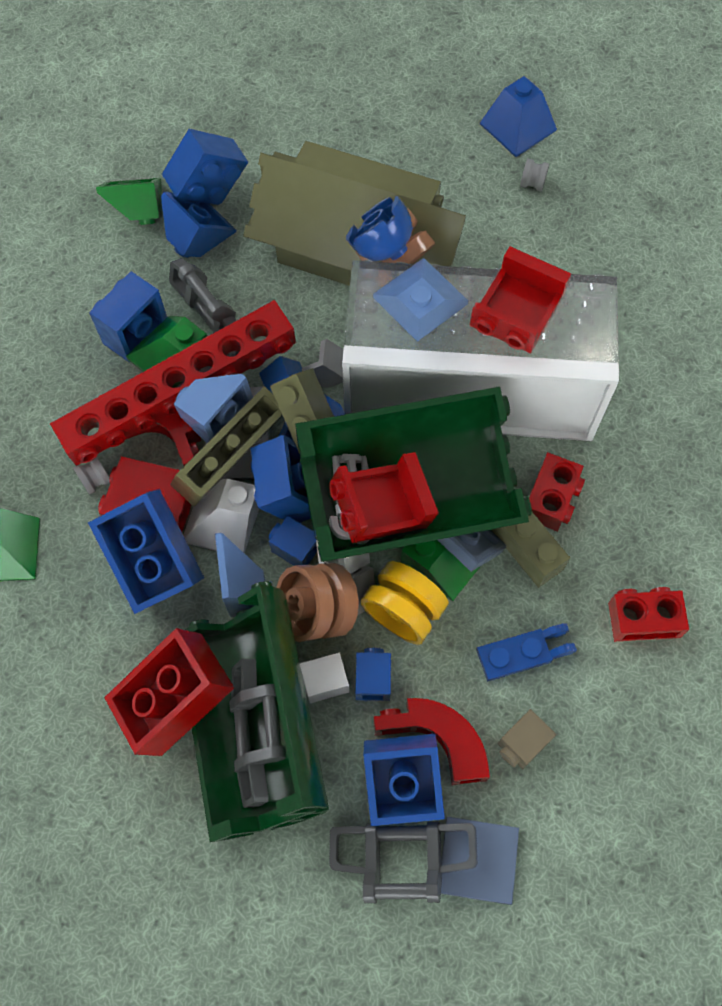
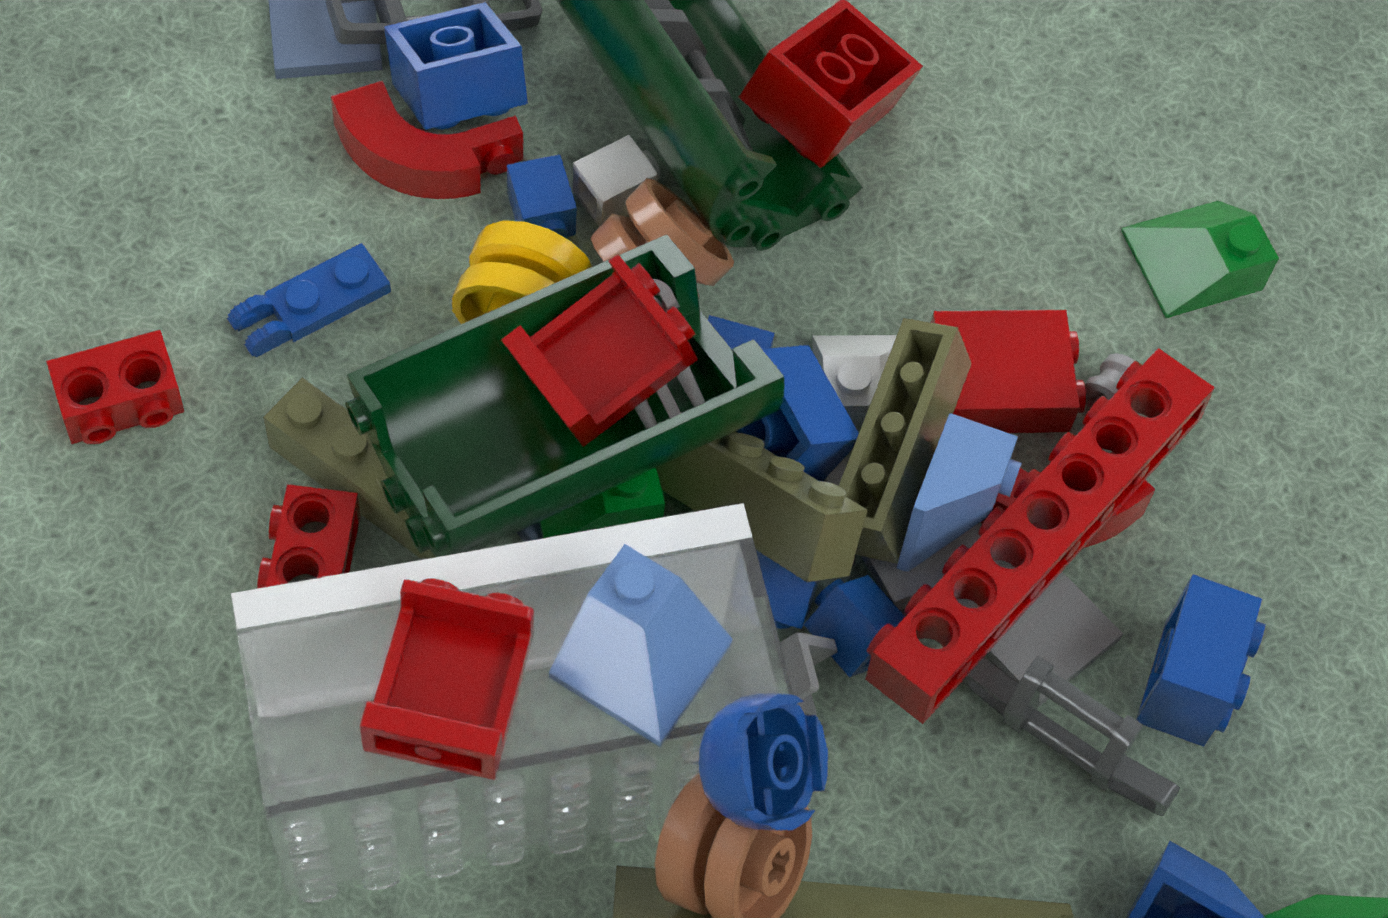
camera: 155 degrees right, 5 degrees down
(146, 550) = (958, 256): blue brick -> none
(165, 341) = (1099, 636): green slope -> none
(236, 574) = (797, 270): medium blue slope -> none
(525, 740) = (285, 170): dark tan brick -> none

